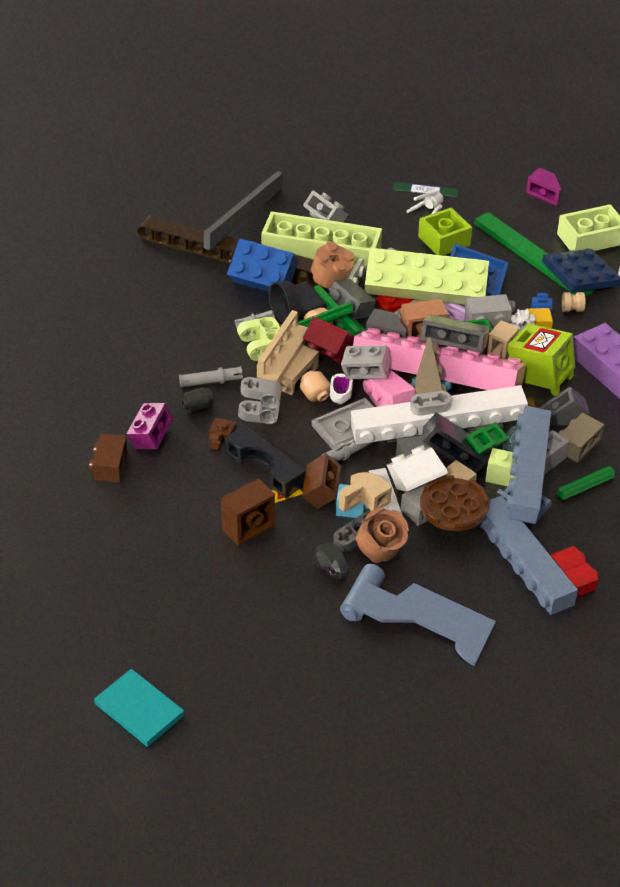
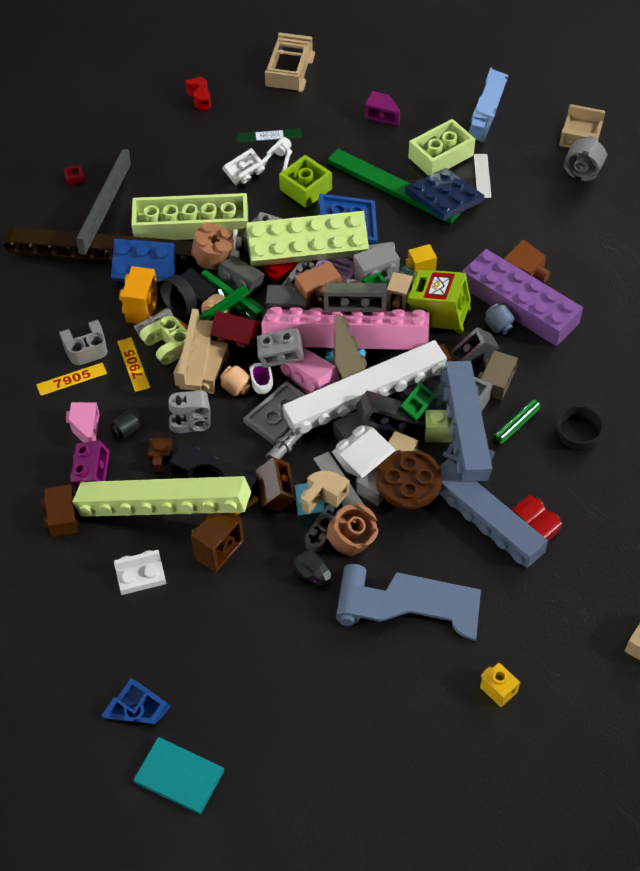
camera: 15 degrees left, 10 degrees up
(121, 637) = (136, 705): none -> blue slope
(155, 354) = (71, 379): none -> yellow sticker
(159, 386) = (83, 420): none -> bright pink slope
(165, 526) = (139, 572): none -> white bracket
(183, 329) = (86, 347): none -> light grey piece
(207, 461) = (162, 496): none -> yellowish green brick
(211, 377) = (130, 394): light grey pin -> none
(223, 350) = (133, 364): none -> yellow sticker
(224, 186) = (73, 175): none -> dark red tile
(248, 293) = (139, 294): none -> light orange brick
(323, 208) = (181, 181): light grey brick -> none
(369, 138) = (198, 90): none -> red leg
(390, 209) = (244, 167): none -> white bracket
(430, 403) = (357, 380): light grey beam -> none
(463, 145) = (284, 78): none -> tan piece
(484, 706) = (499, 684): none -> yellow brick
(522, 318) = (411, 264): white gear -> none
(541, 301) = (419, 238): blue gear -> none
(573, 302) = (447, 230): tan wheel -> none
(599, 388) = (499, 319): none -> sand blue head

